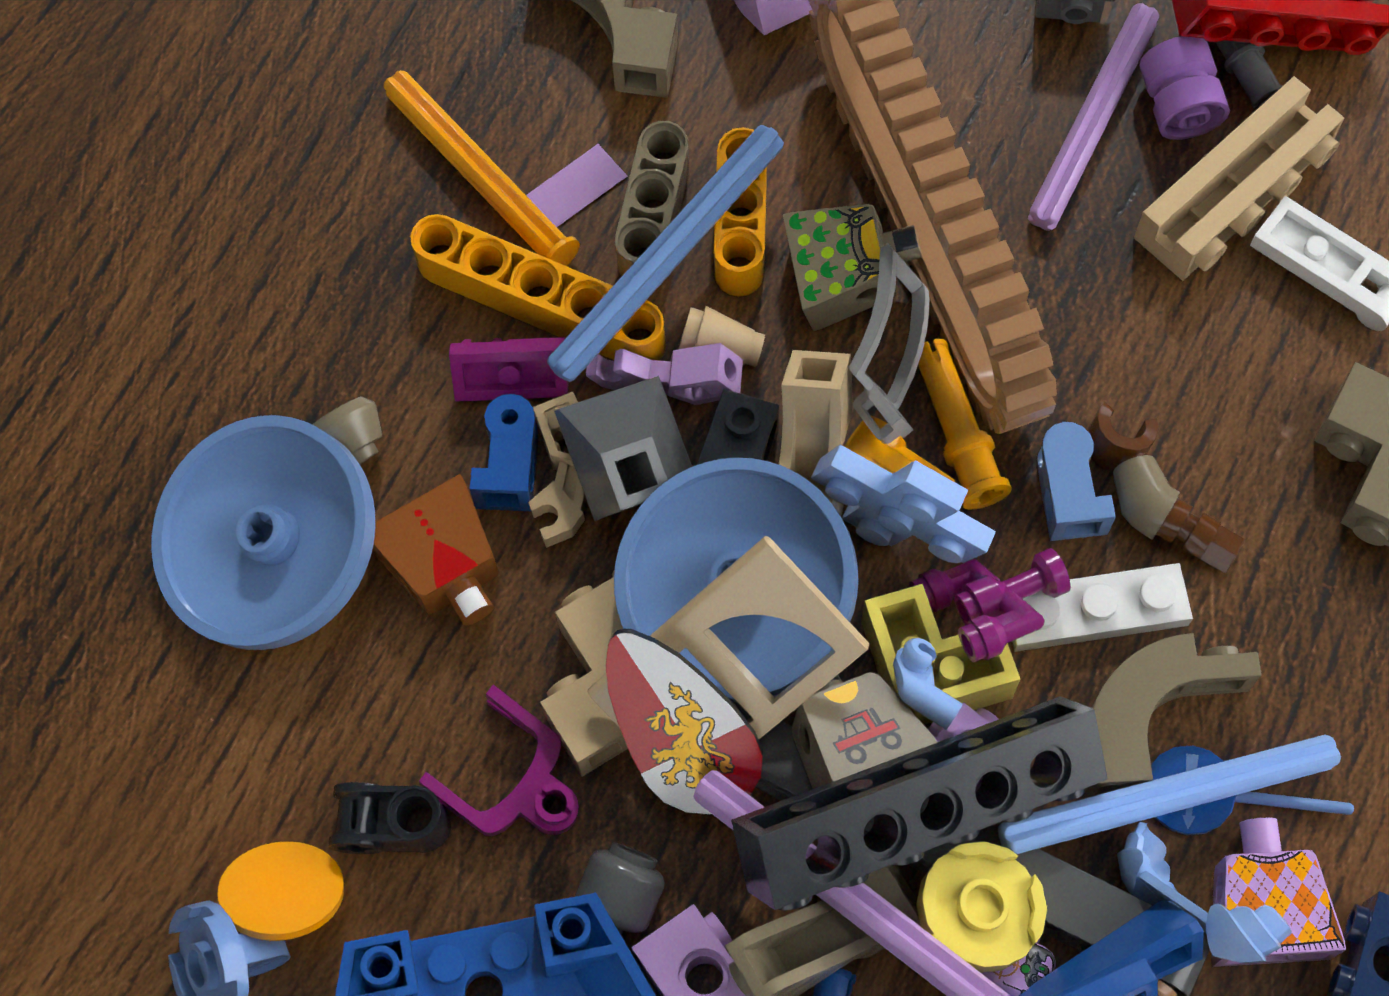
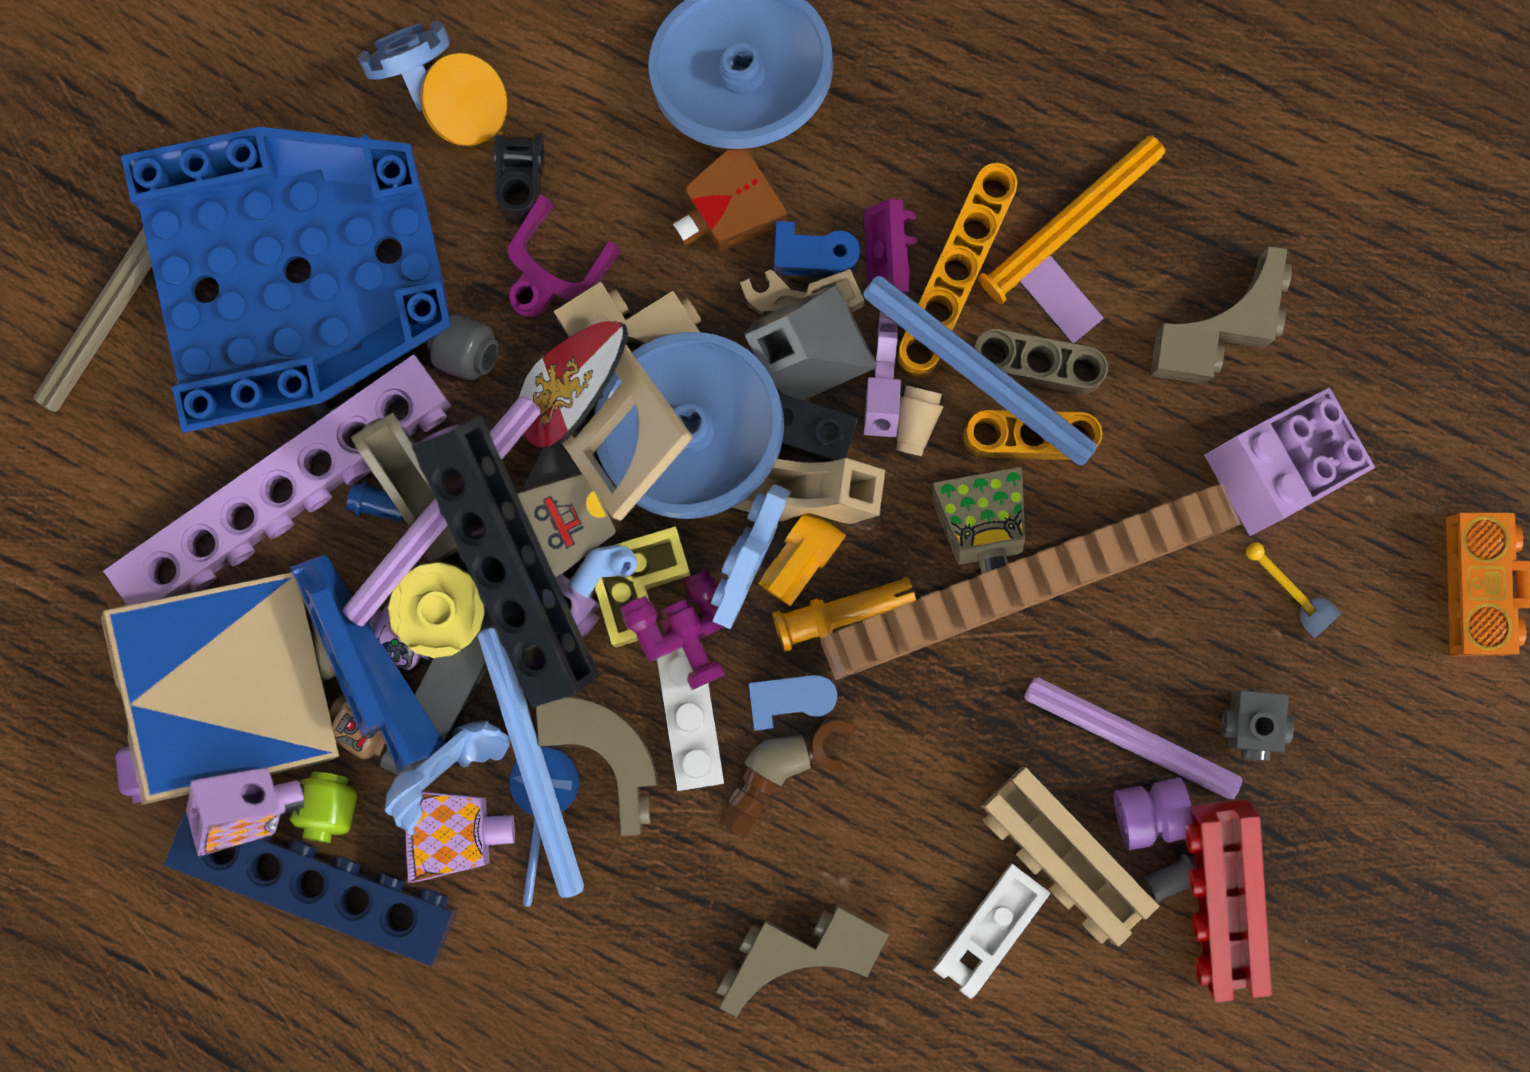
camera: 85 degrees right, 15 degrees up
(355, 426) = (830, 126): dark tan cone -> none
(888, 404) = (846, 542): light grey sword -> none

